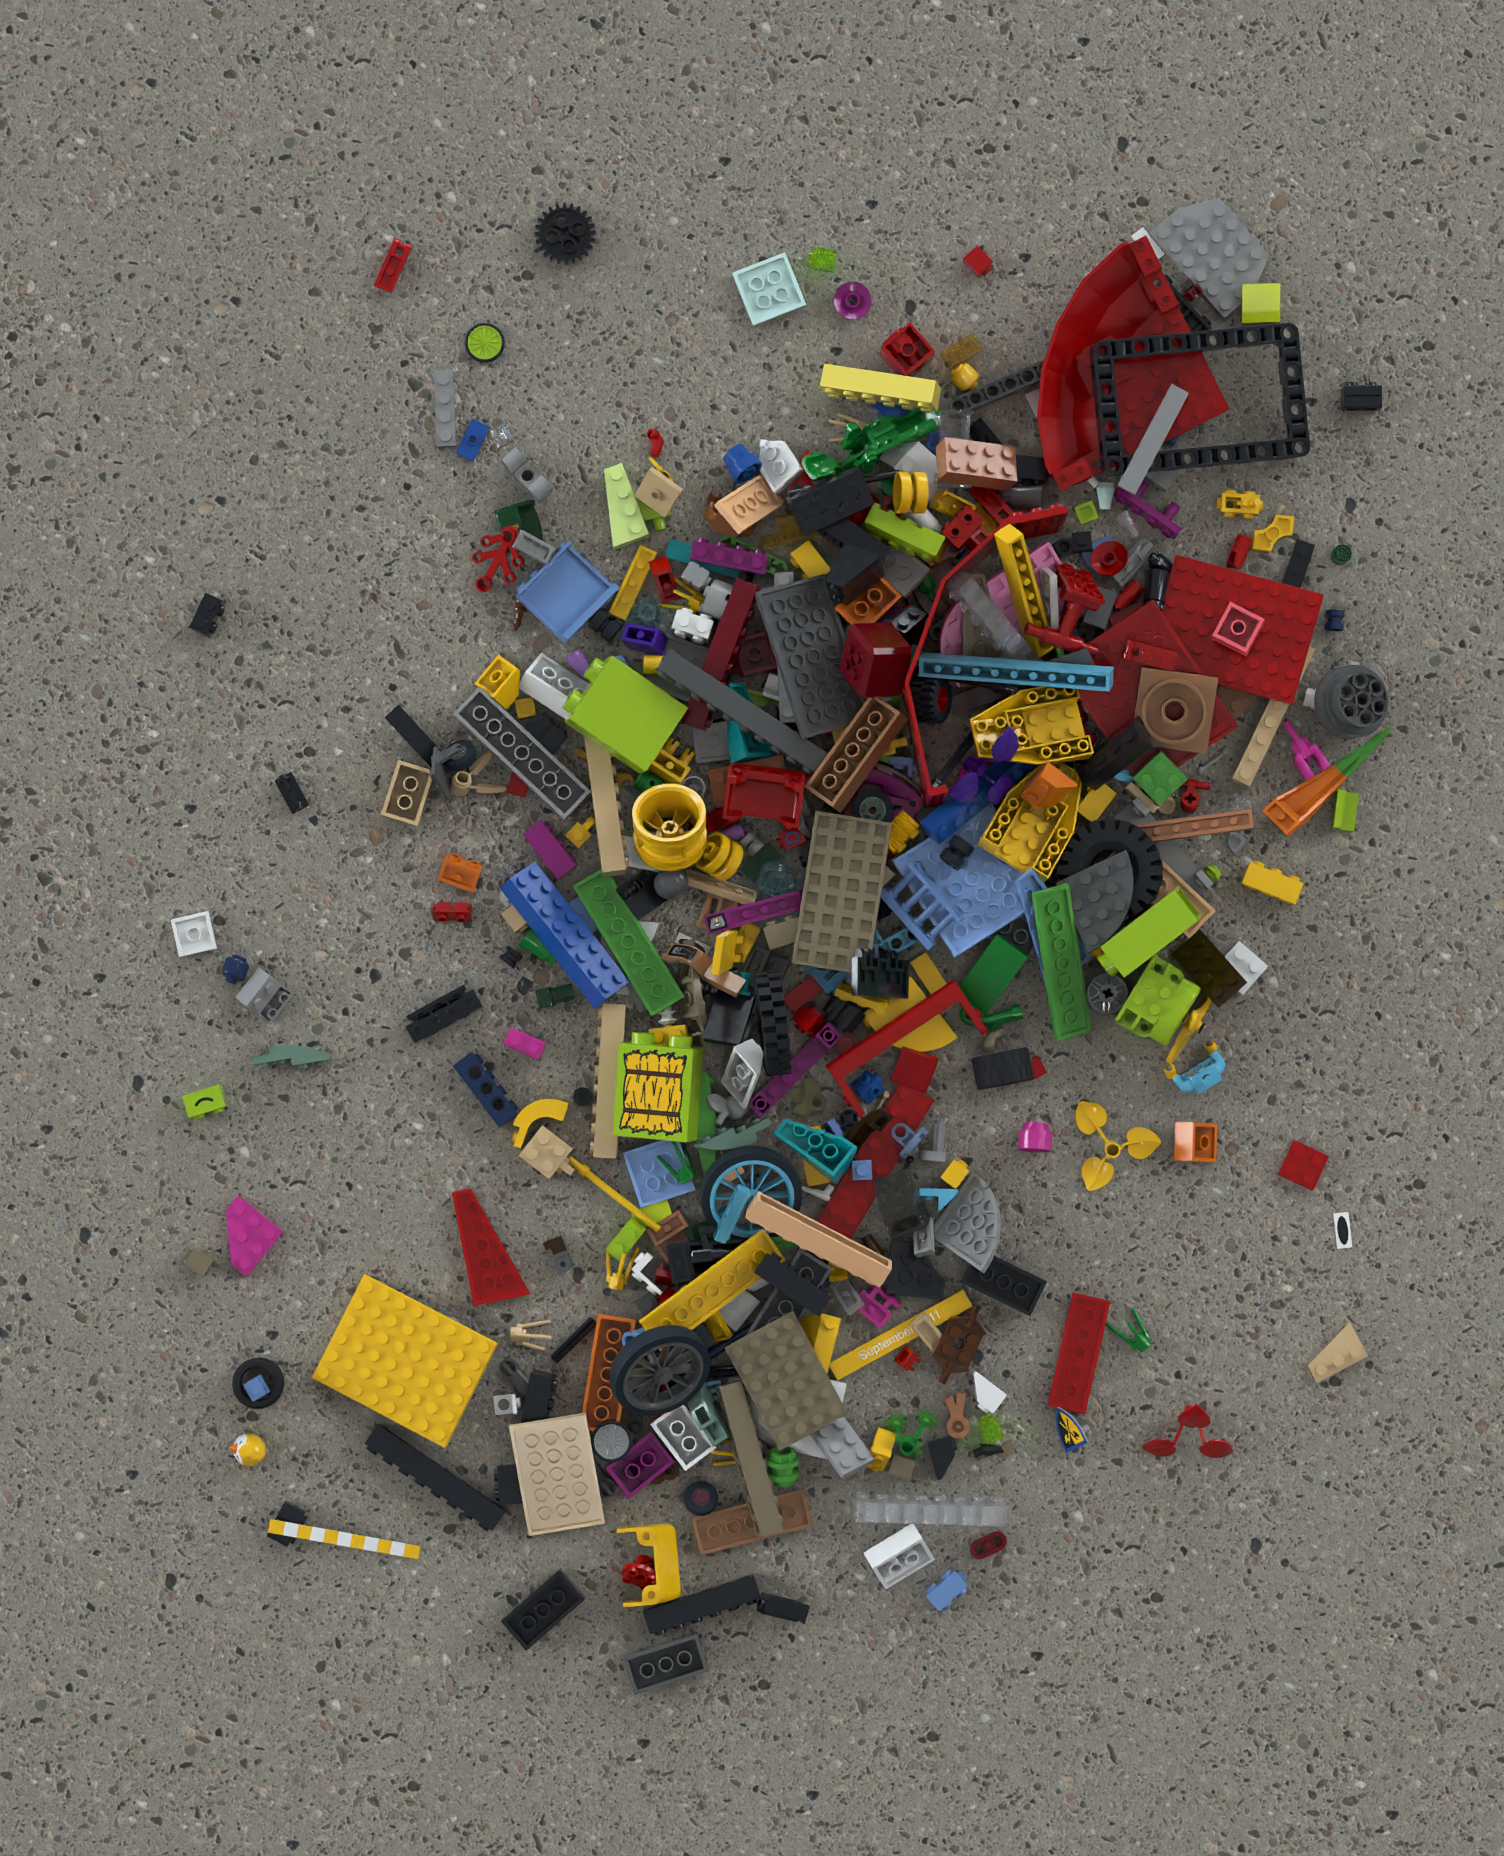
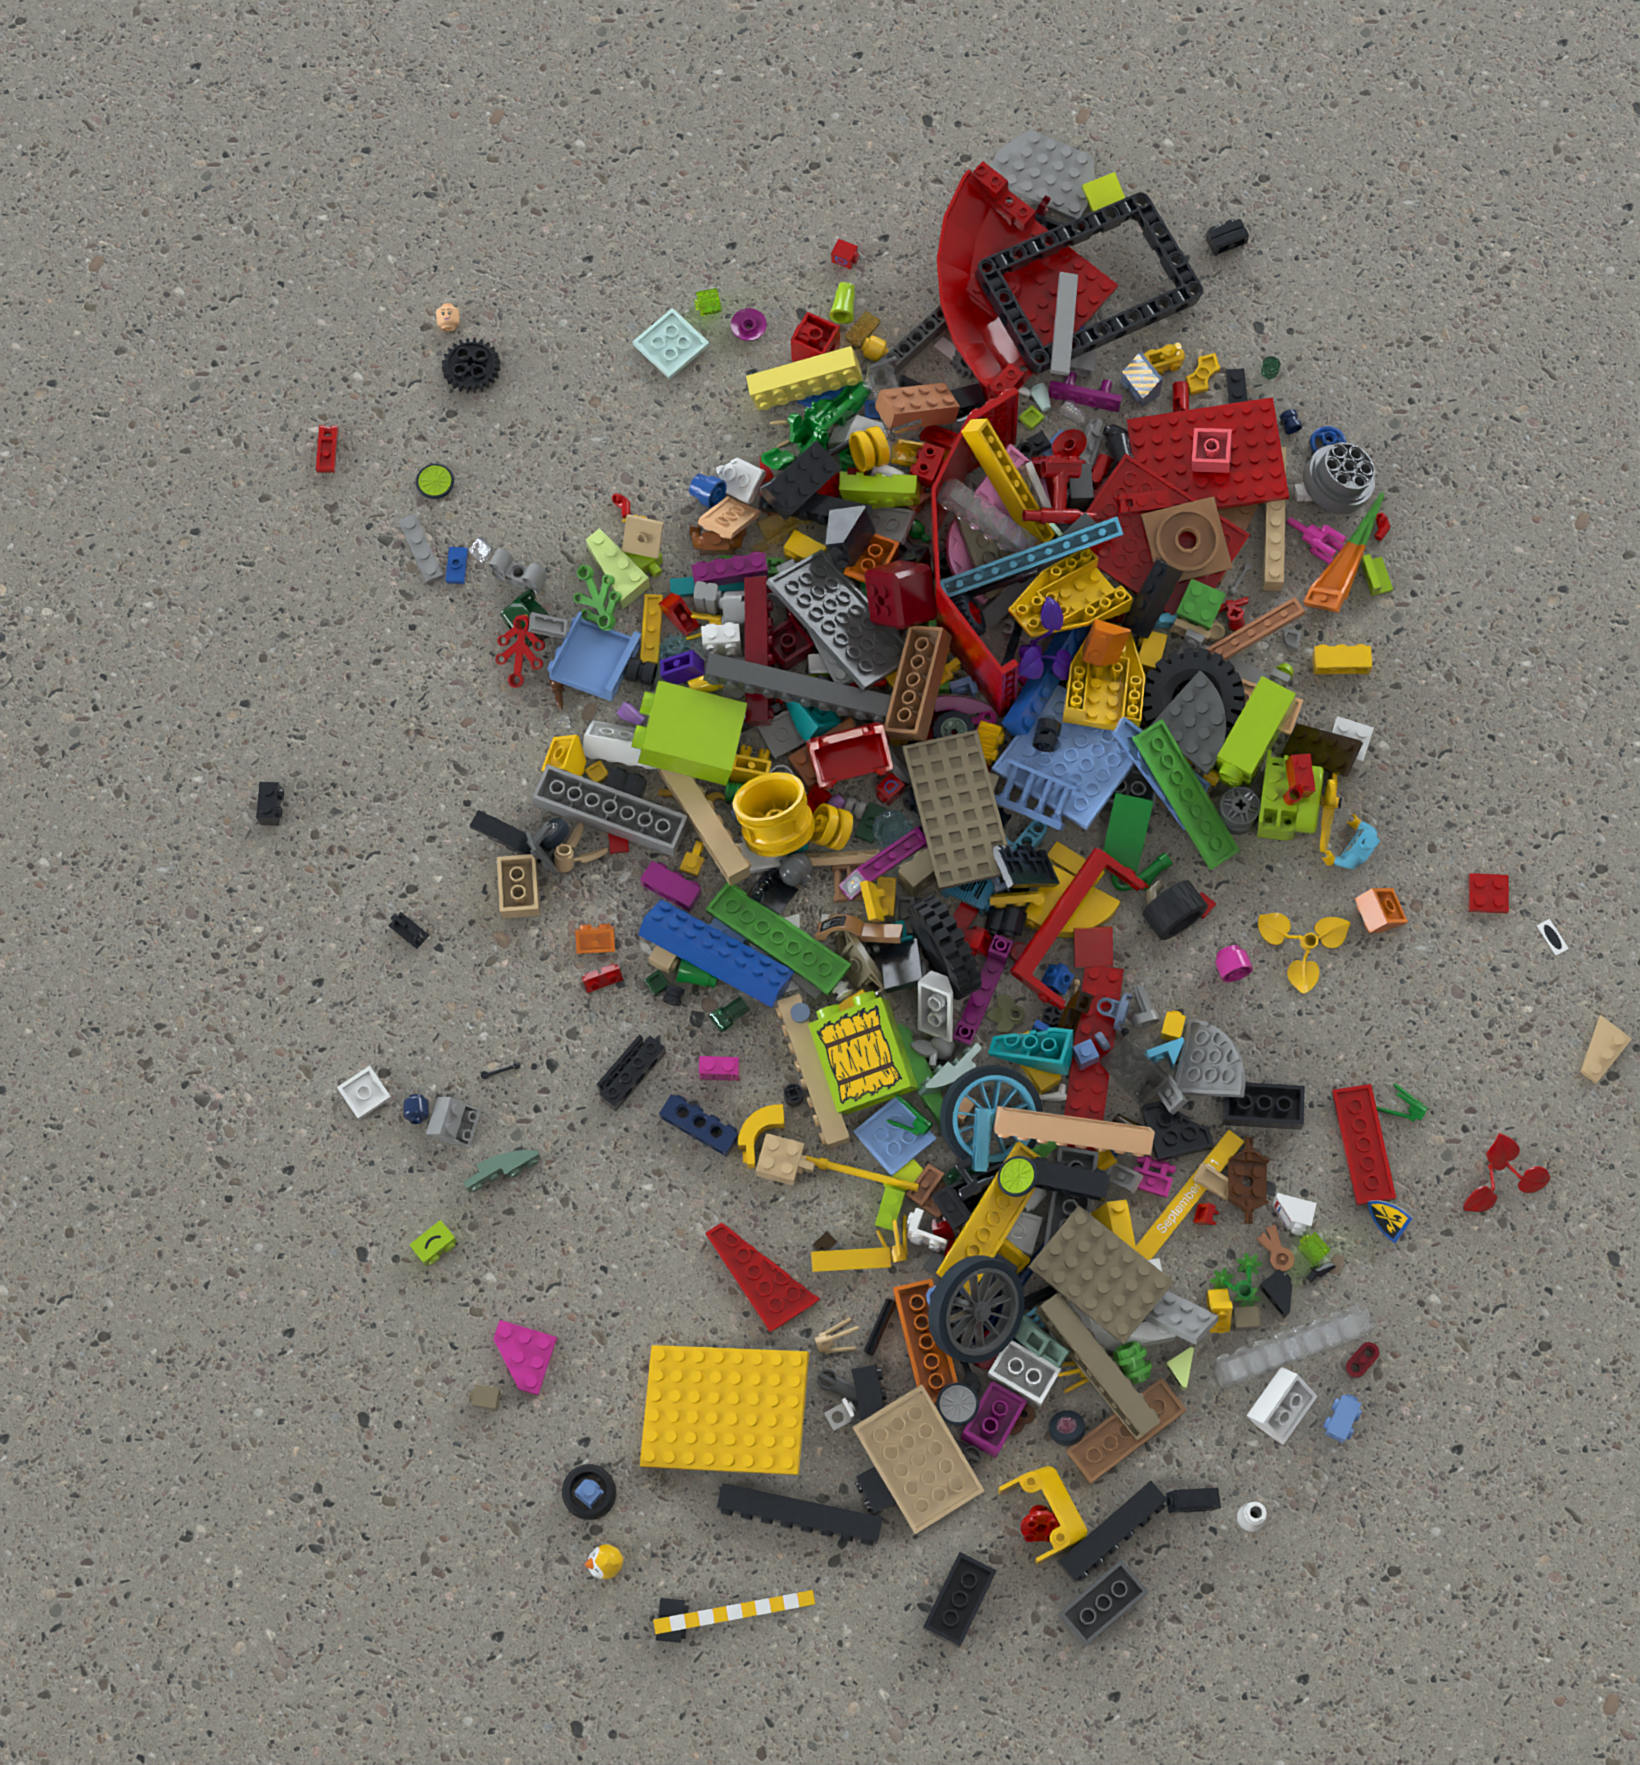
camera: 15 degrees left, 15 degrees down
(310, 961) = (485, 1074): none -> black hinge
(500, 937) = (656, 982): none -> dark green tile
(562, 172) = (448, 317): none -> light nougat head
(571, 1271) = (851, 1259): none -> yellow tile
(592, 535) = (598, 599): none -> bright green plant
(618, 1024) = (800, 1013): none -> sand blue tile
(748, 1264) = (1017, 1176): none -> lime wheel
(824, 1486) = (1180, 1367): none -> yellowish green slope
(829, 1632) = (1245, 1519): none -> white plant
(882, 1163) = (1102, 1041): none -> sand blue tile
(954, 316) = (843, 305): none -> lime plant
(1169, 997) = (1299, 777): none -> red hinge
(1207, 519) = (1141, 380): none -> slope
(1368, 656) = (1330, 434): none -> blue piece
(1374, 763) = (1383, 526): none -> red arm

